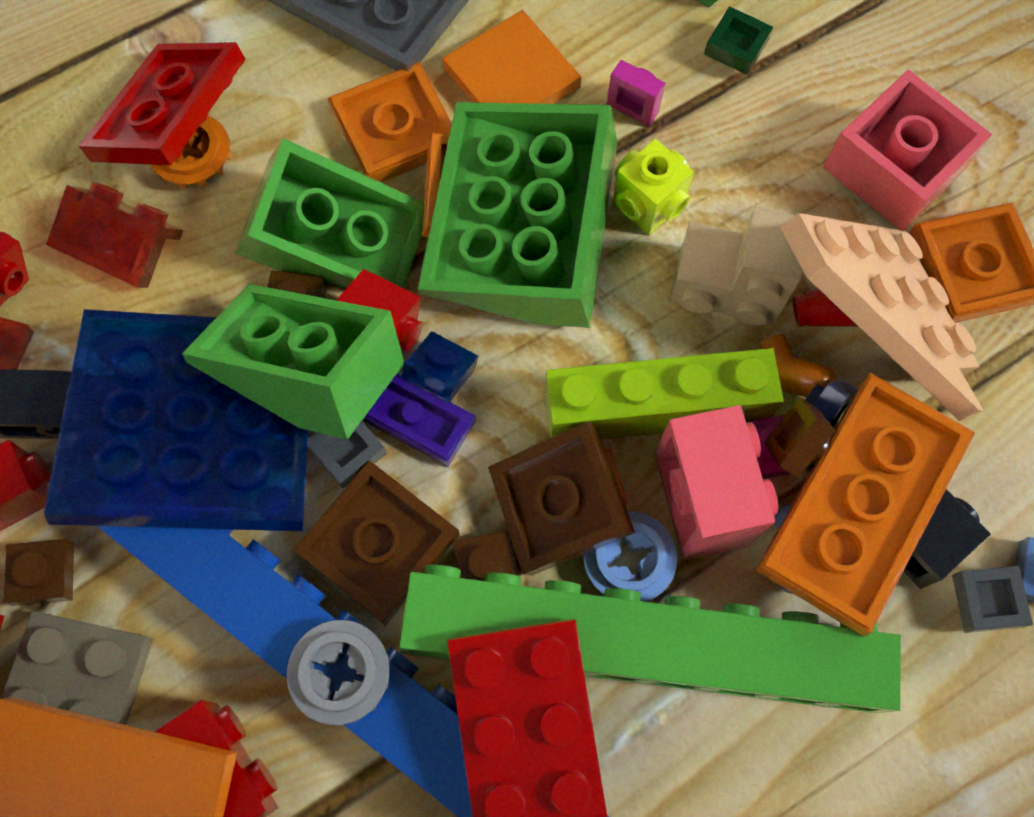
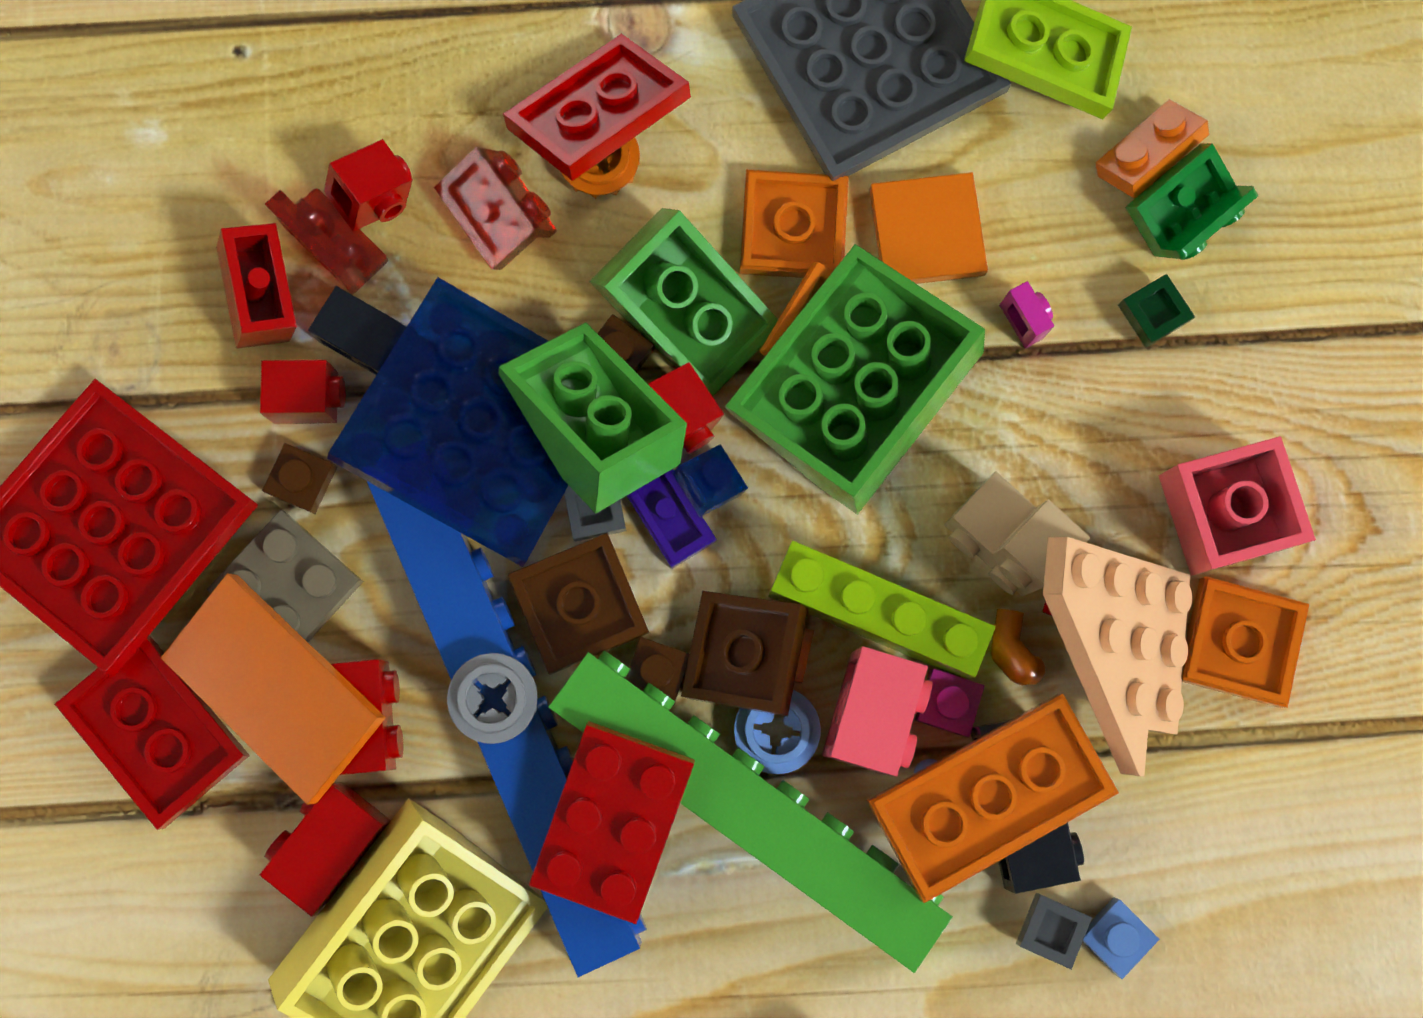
camera: 25 degrees right, 10 degrees up
(652, 186) = (974, 428): neon yellow brick -> none
(800, 437) = (968, 715): reddish brown plate -> none
(832, 399) = (1011, 699): dark blue plate -> none

